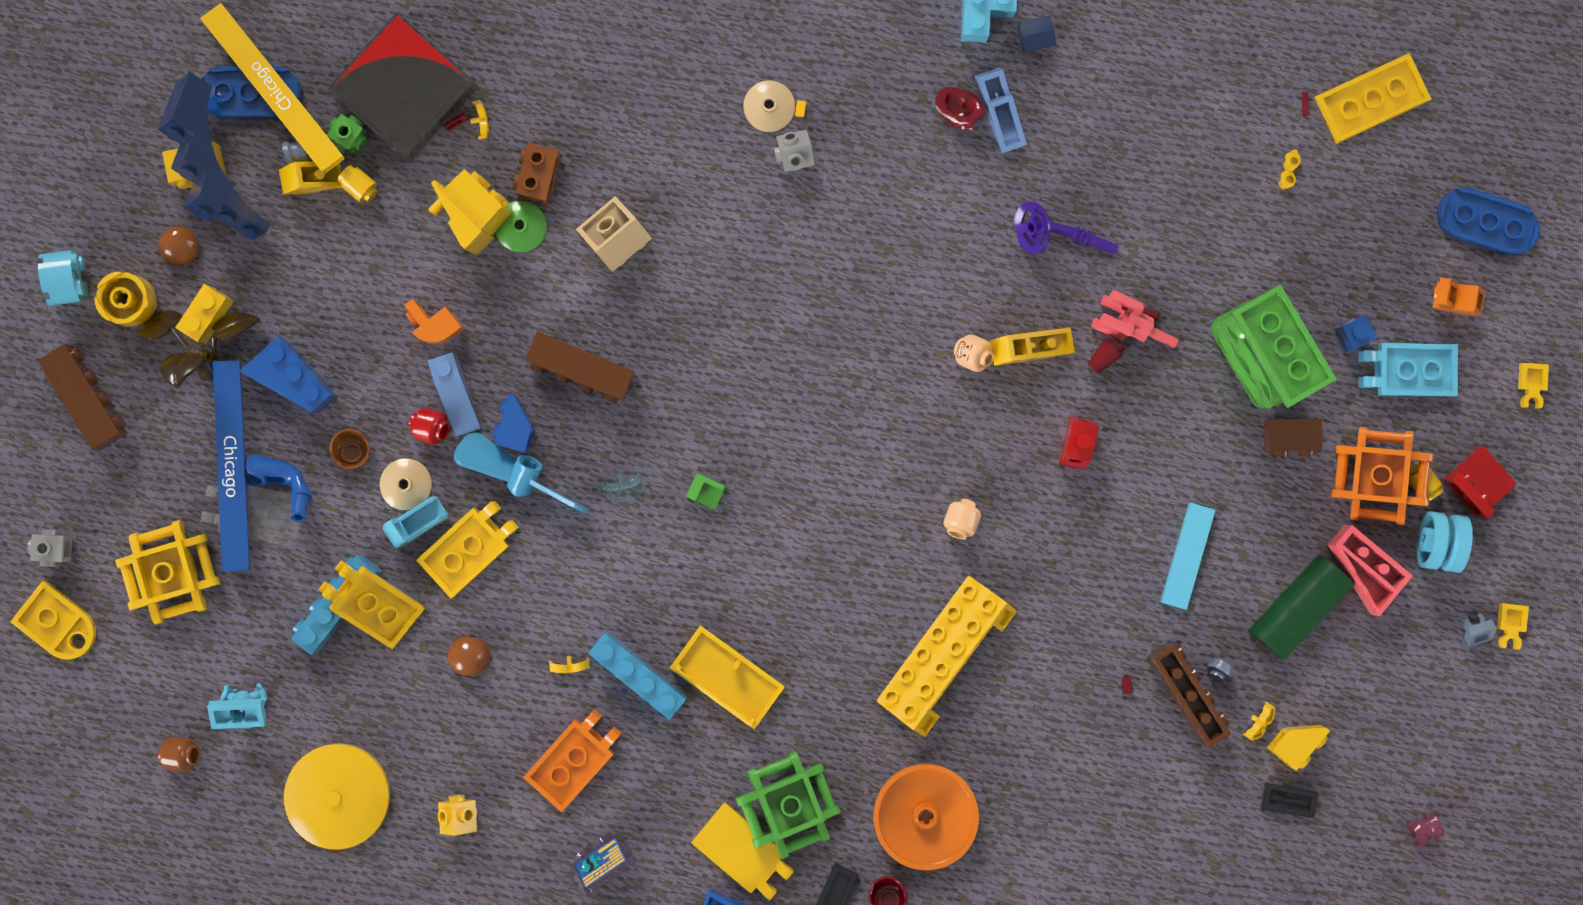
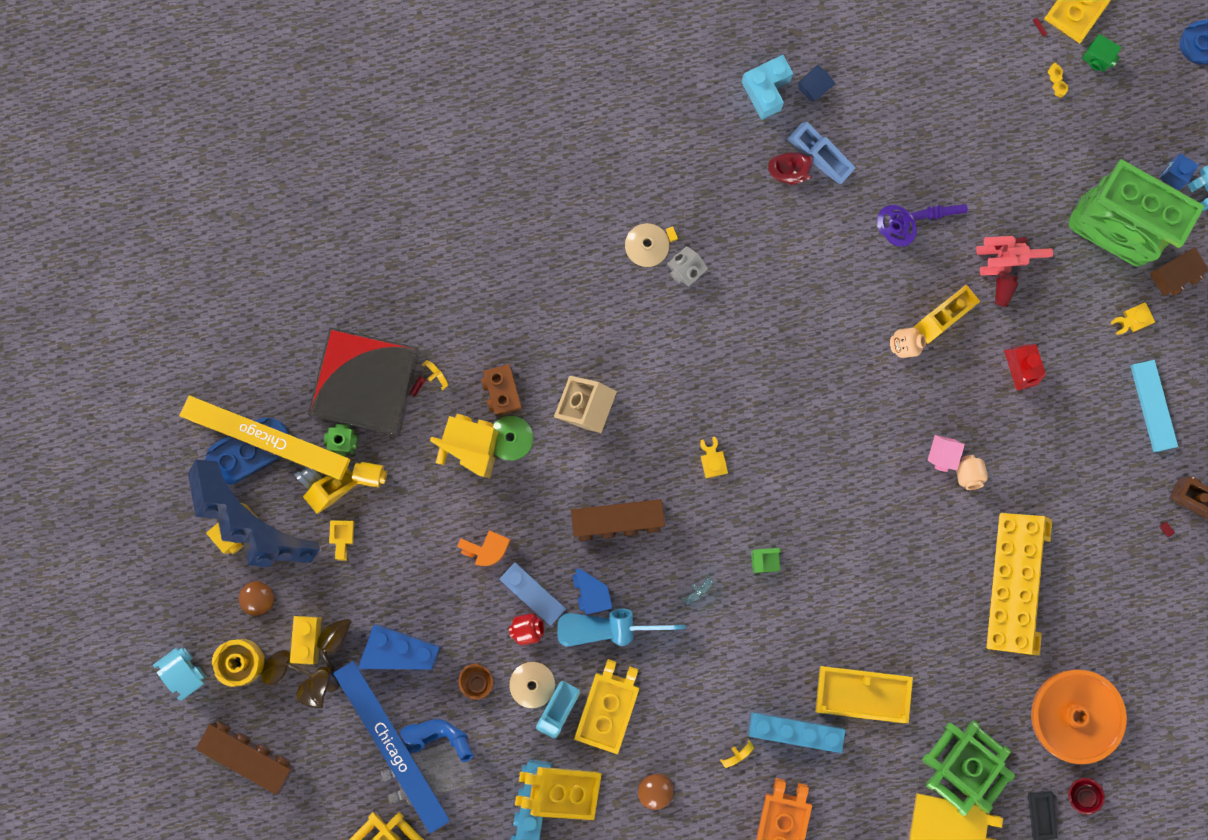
camera: 25 degrees left, 5 degrees down
(297, 229) = (341, 534): none -> yellow plate
(710, 364) = (713, 462): none -> yellow plate
(946, 485) = (945, 453): none -> bright pink brick
(1223, 458) = (1135, 318): none -> yellow plate
(1350, 167) = (1102, 53): none -> green brick

